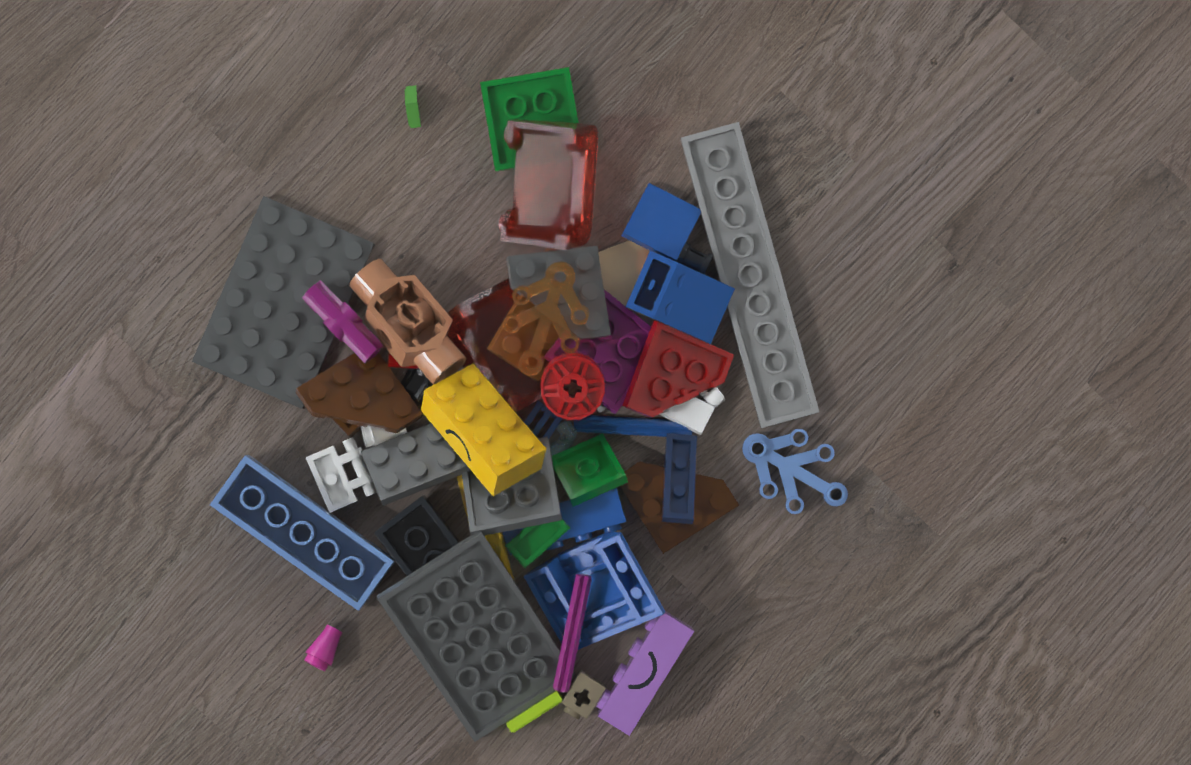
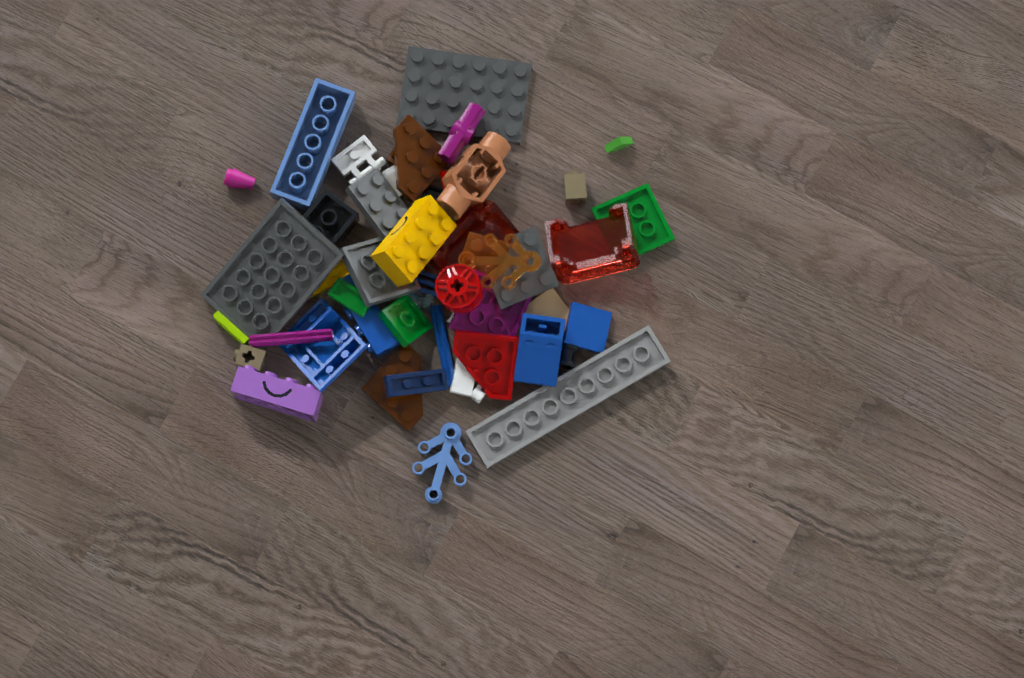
camera: 65 degrees right, 10 degrees down
(459, 185) = (574, 188): none -> dark tan brick

